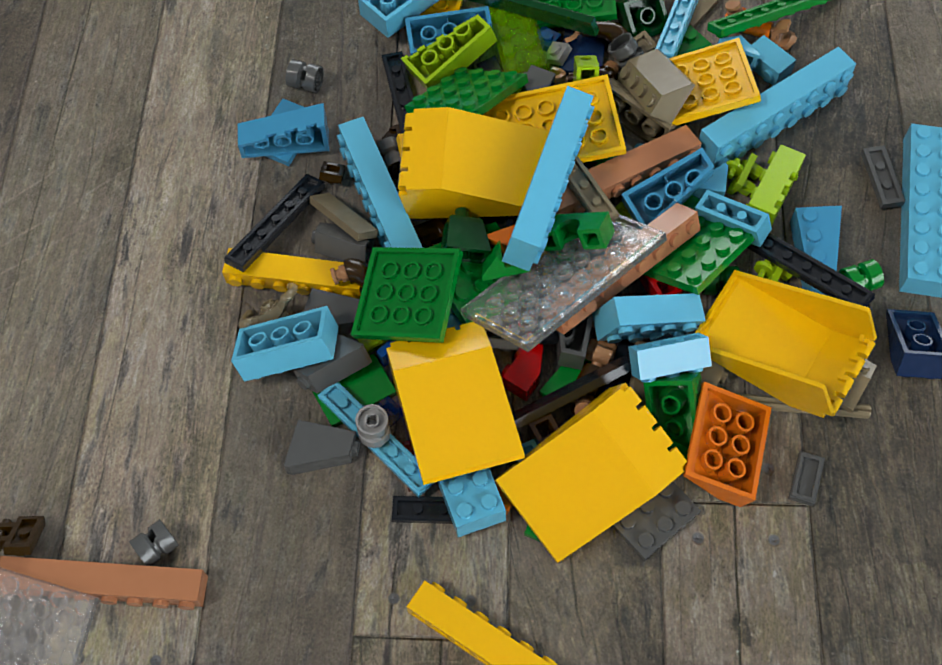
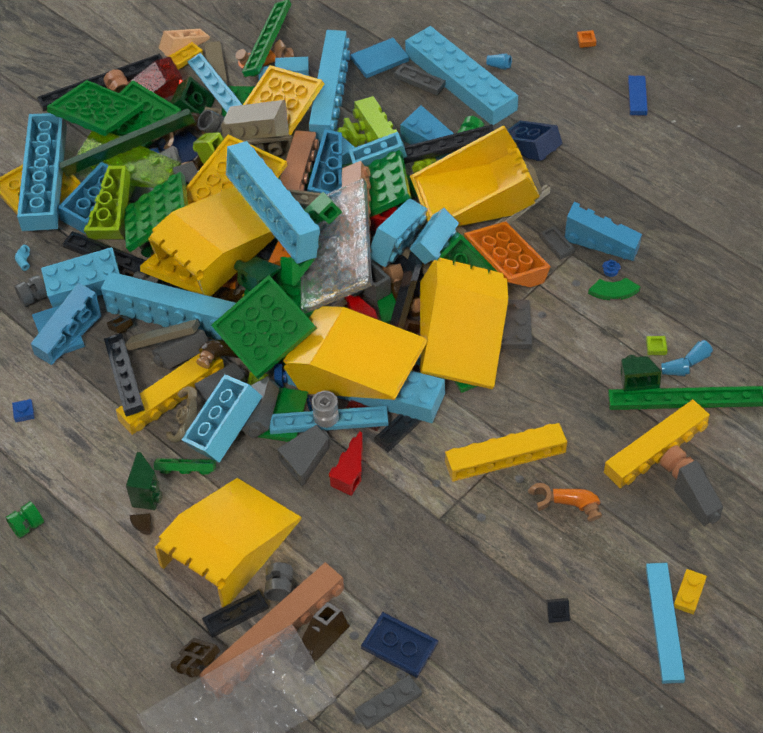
camera: 50 degrees left, 10 degrees down
(59, 275) = (24, 520): none -> green wheel
(98, 531) = (235, 613): none -> black tile
(125, 631) = (324, 630): none -> dark brown slope
(135, 370) = (142, 523): none -> dark brown tile
(164, 457) = (227, 536): none -> yellow windscreen
(168, 336) = (143, 485): none -> dark green slope
(178, 178) = (23, 410): none -> blue plate
(219, 351) = (184, 466): none -> green plate
(336, 503) = (348, 471): none -> red slope
(338, 38) = (21, 257): none -> medium azure arm
(352, 97) = (87, 270): none -> medium azure brick
(800, 590) = (614, 290): none -> green tile
(822, 566) = (611, 268): none -> blue plate
(858, 518) = (601, 234): none -> dark azure wedge
(872, 120) = (379, 57): none -> dark azure tile

